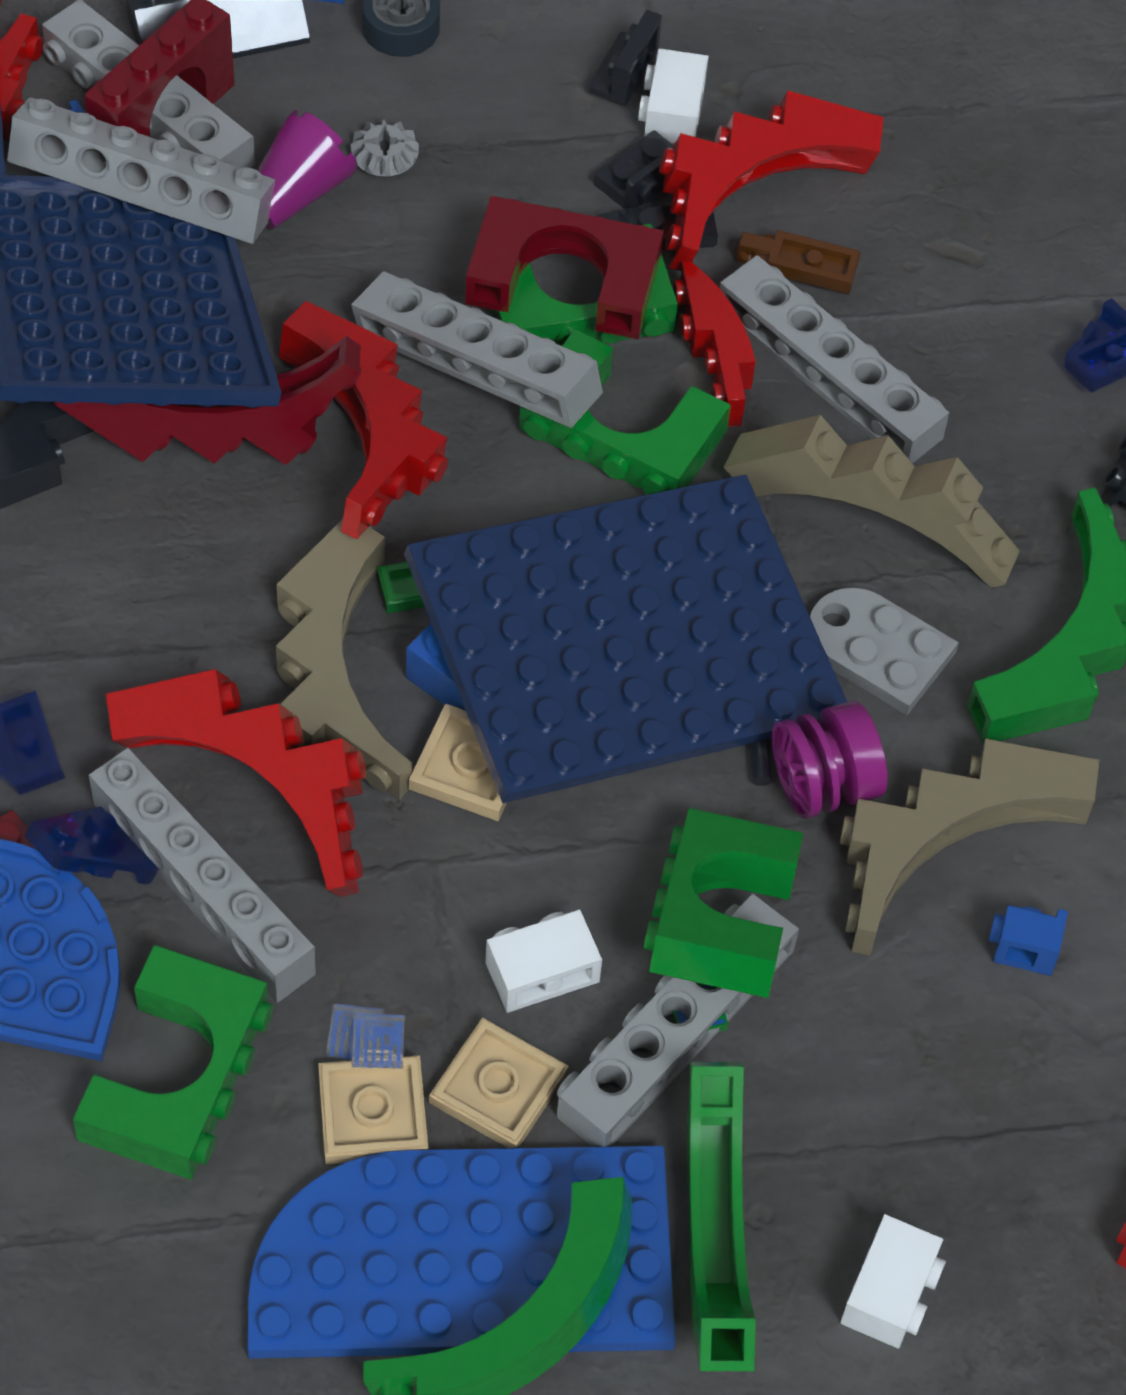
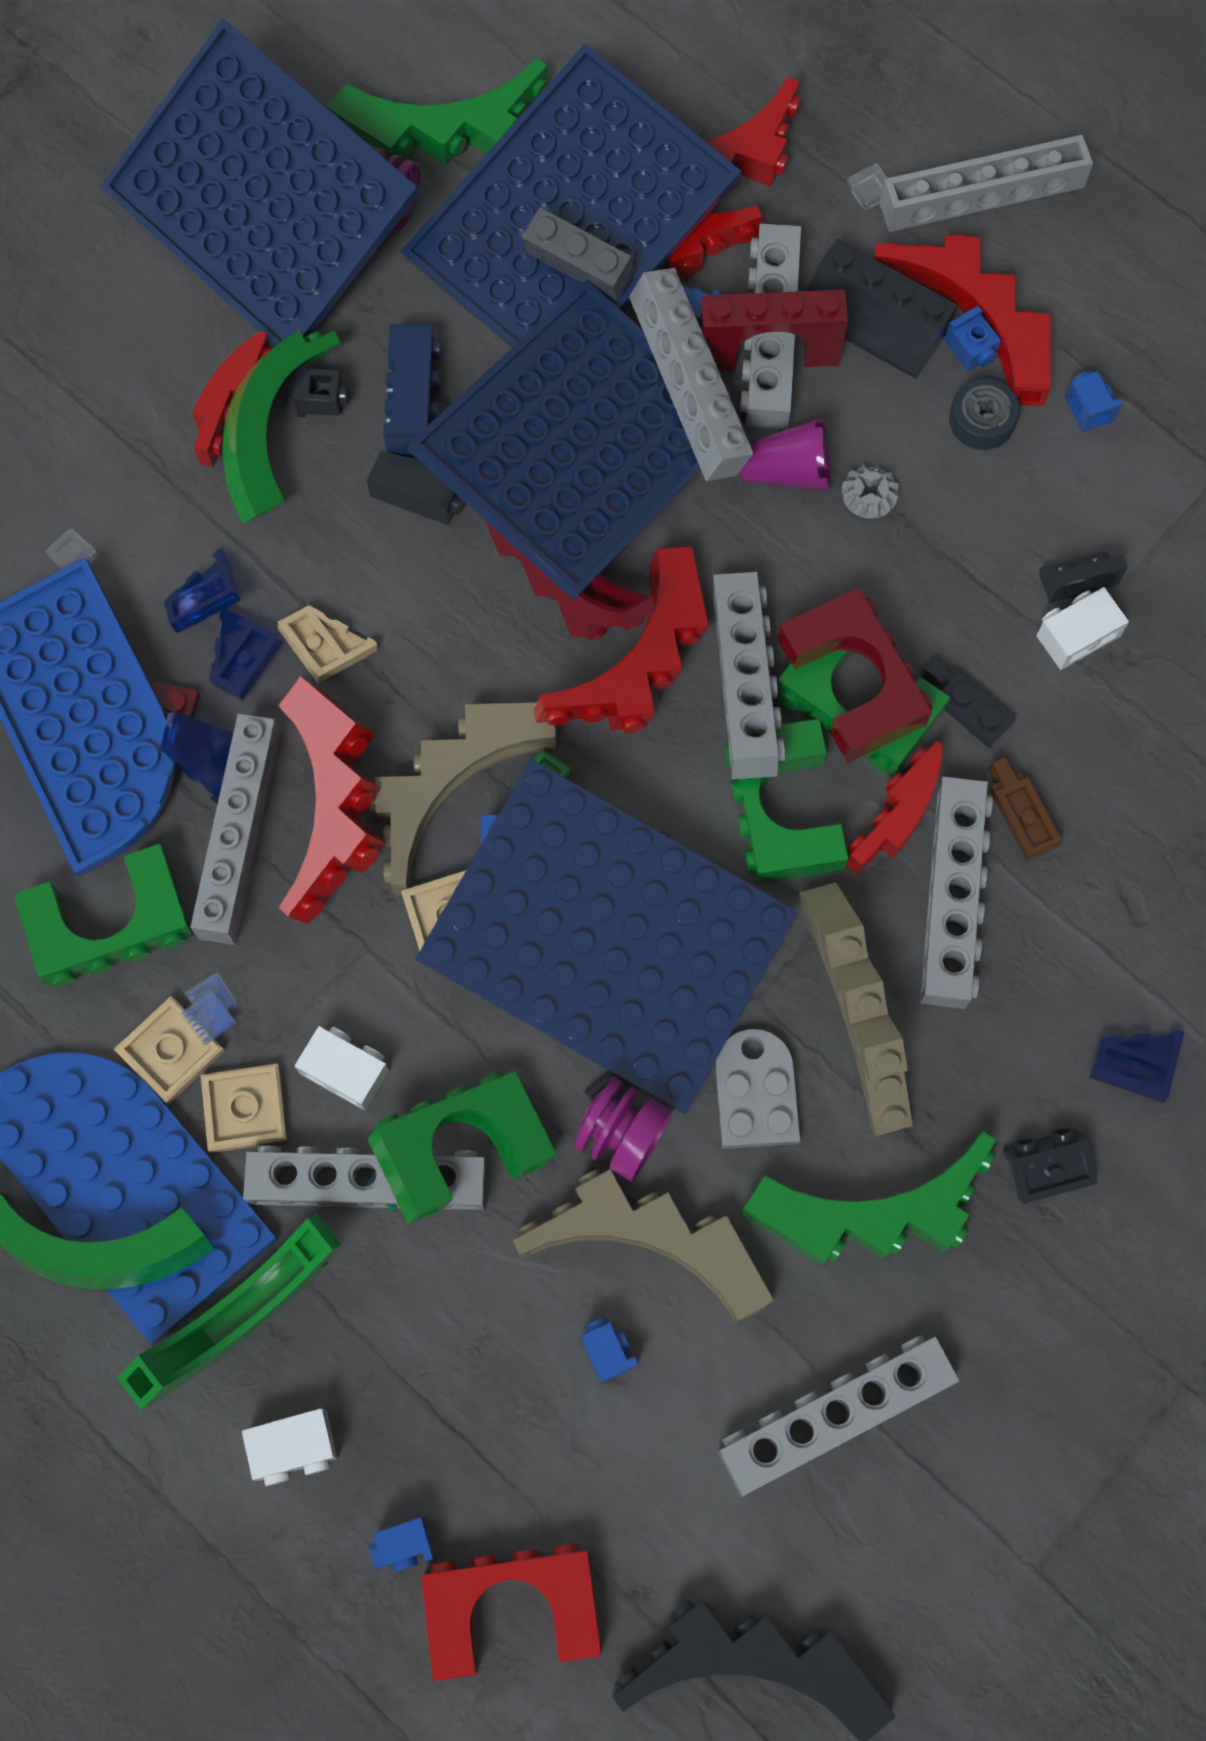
camera: 55 degrees right, 15 degrees up
(76, 665) = (323, 643): none -> tan wing
(634, 174) = (1004, 657): black bracket -> none
(795, 136) = (1122, 733): red arch -> none
(1078, 1248) = (401, 1545): none -> blue brick

